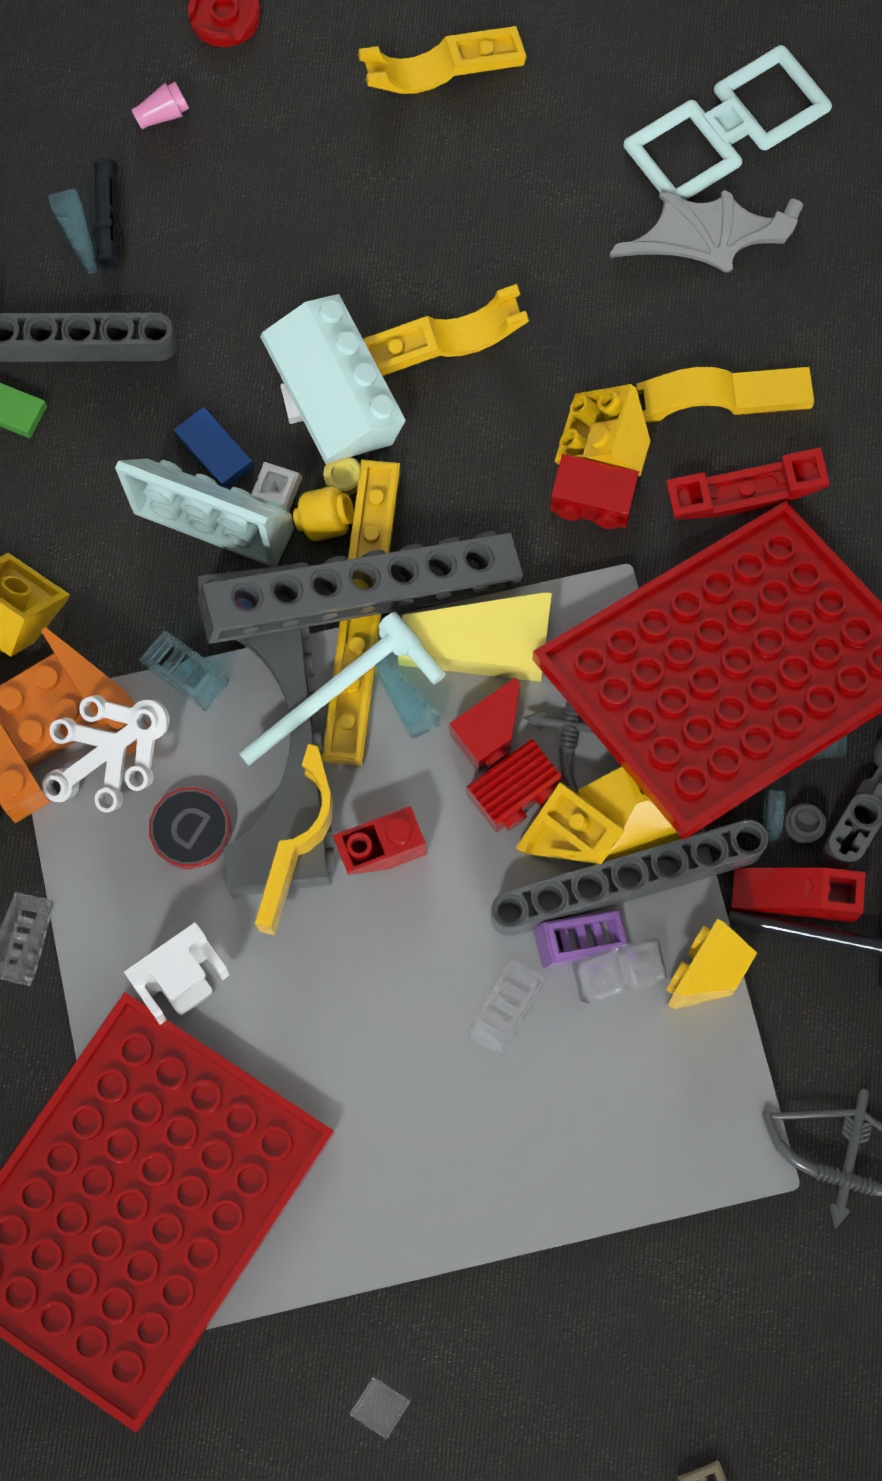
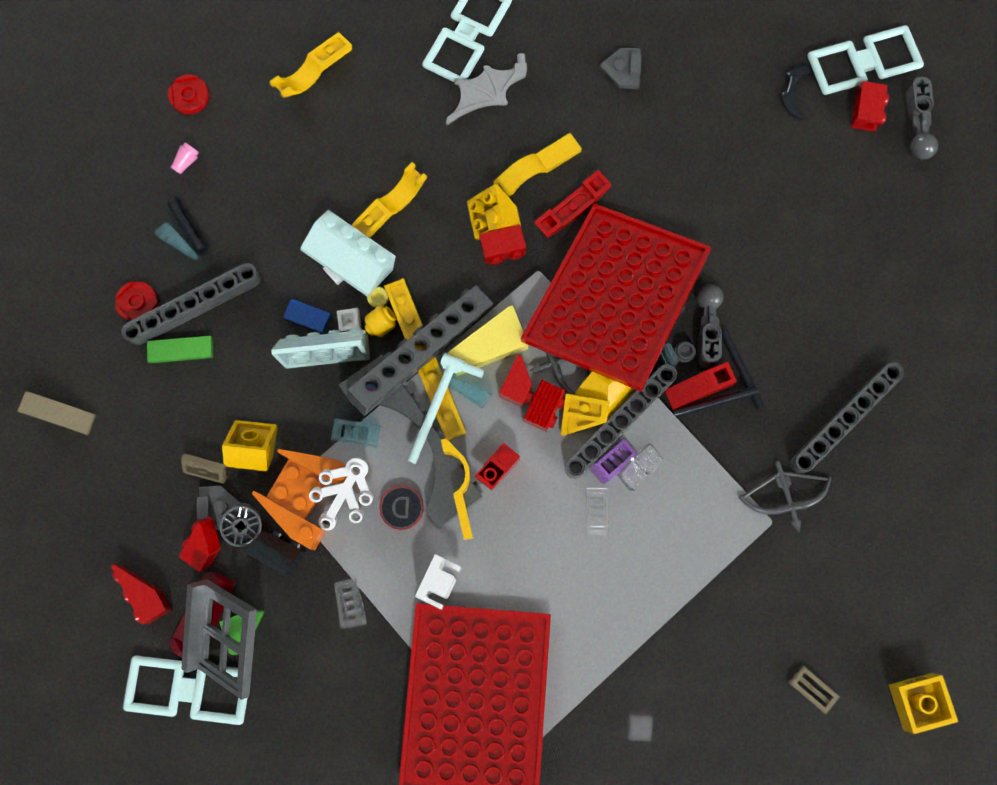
camera: 30 degrees left, 5 degrees up
(716, 967) = (682, 441): yellow slope -> none

